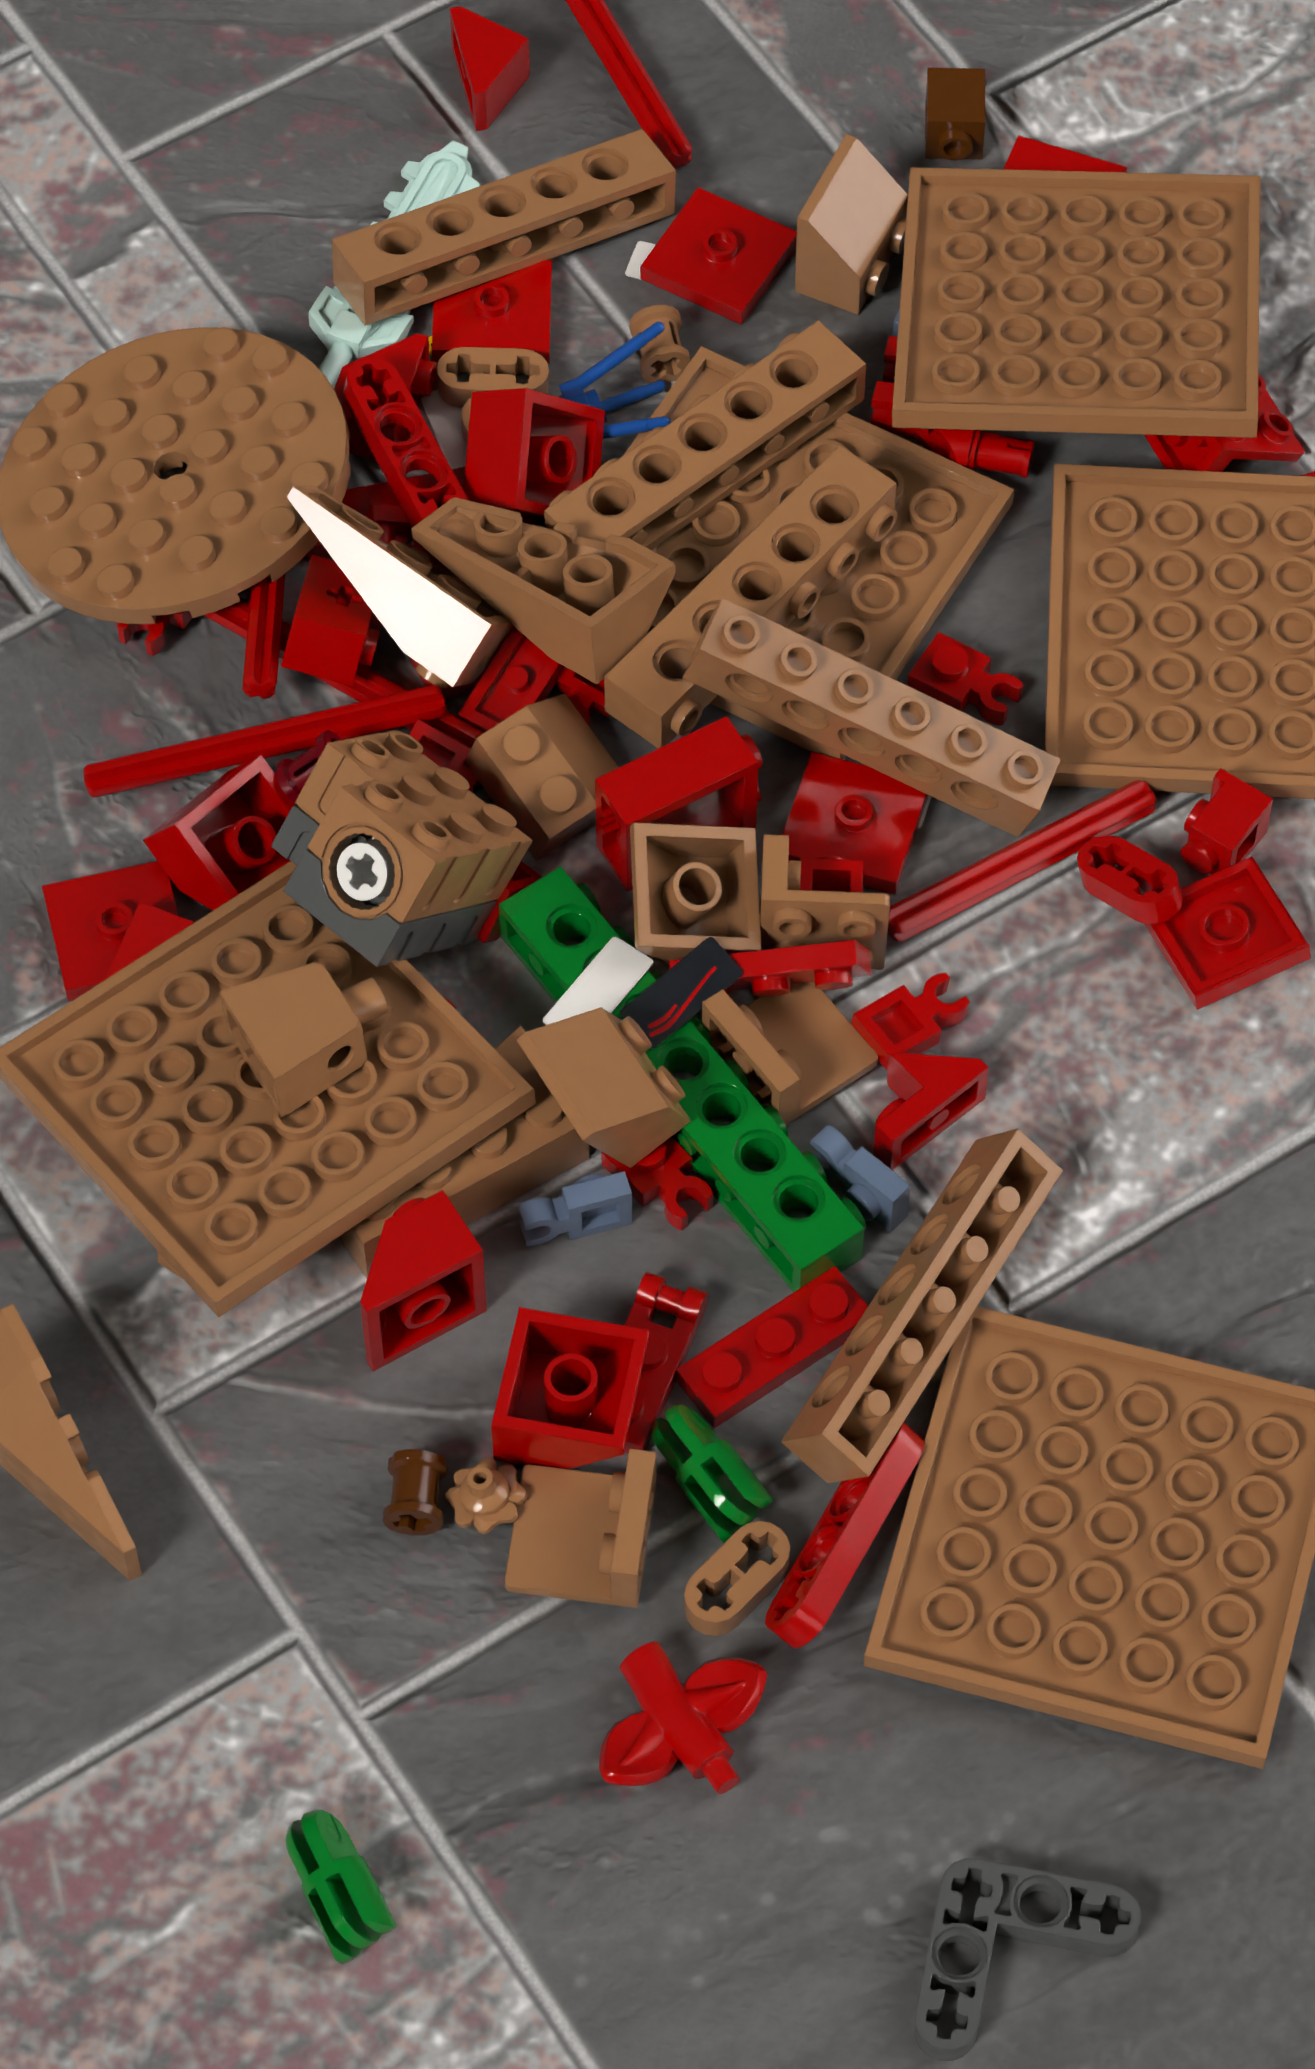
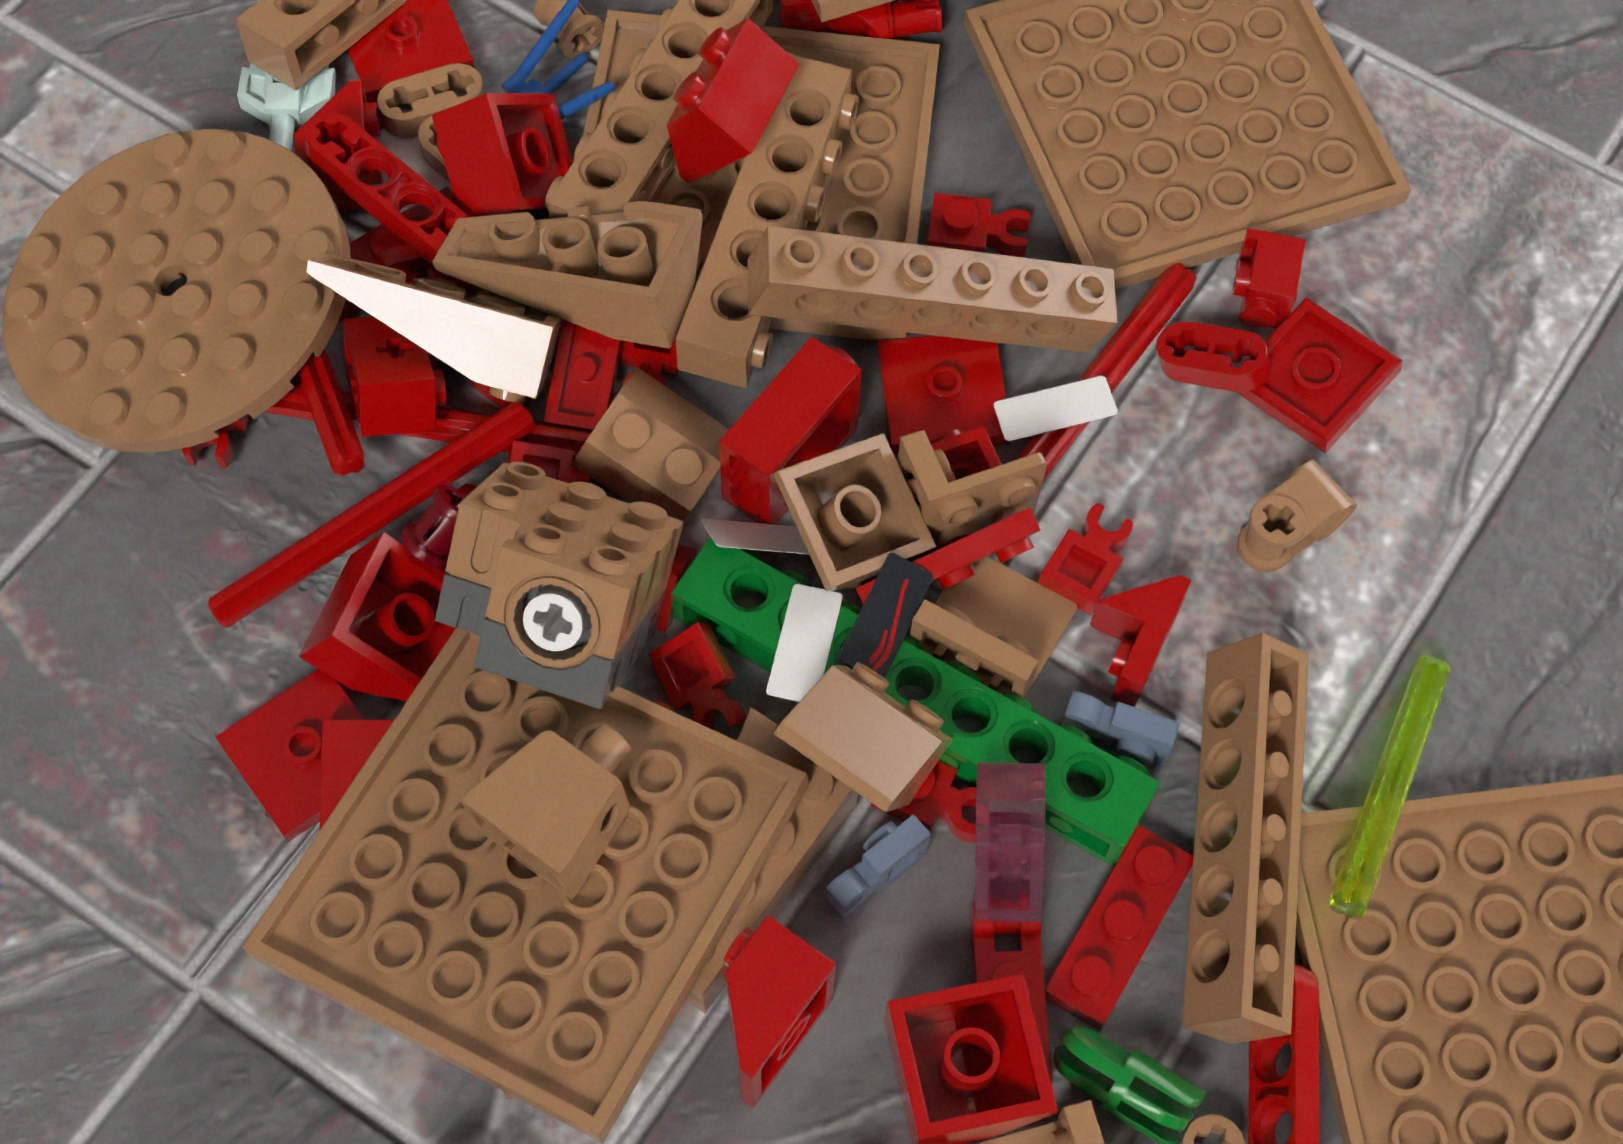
camera: 25 degrees left, 5 degrees up
(491, 986) = (694, 675): none -> red plate
(595, 881) = (755, 536): none -> white sticker
(697, 1223) = (1010, 842): none -> clear pink brick
(755, 469) = (728, 99): none -> red slope
(948, 872) = (1055, 408): none -> white sticker
(1082, 1312) = (1389, 788): none -> clear neon green axle
(1133, 1052) = (1293, 518): none -> medium nougat piece

